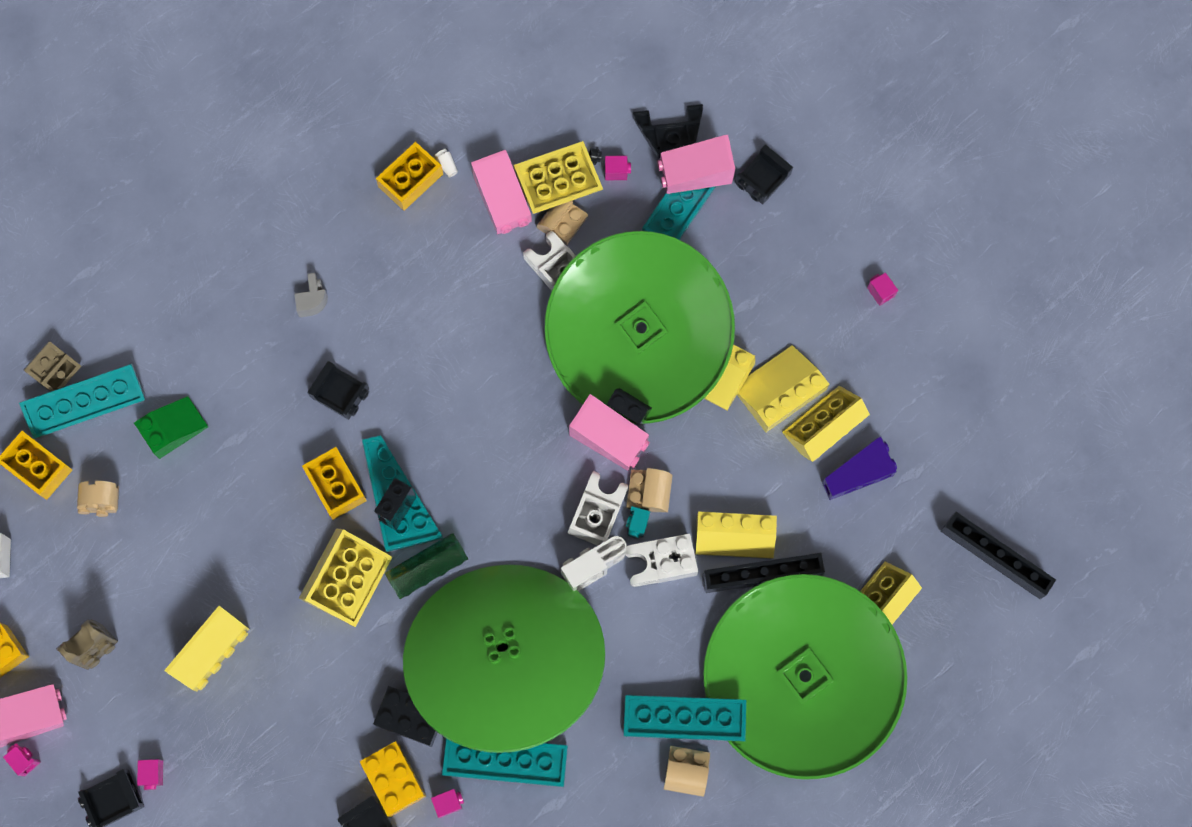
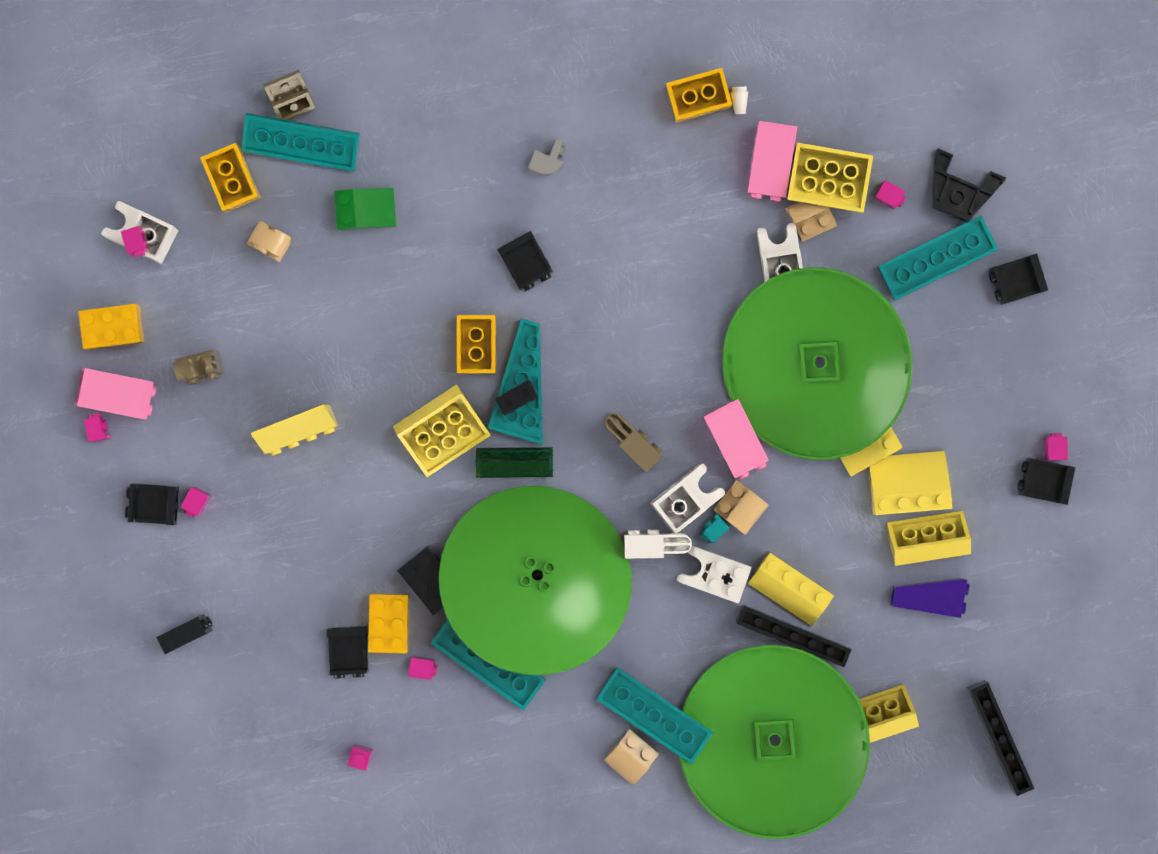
camera: 30 degrees right, 15 degrees up
(521, 486) = (633, 442): none -> dark tan brick
(595, 155) = (877, 170): black plate -> none
(629, 406) = (766, 426): black brick -> none
(697, 165) = (961, 240): bright pink slope -> none
(892, 320) = (1046, 481): none -> black panel

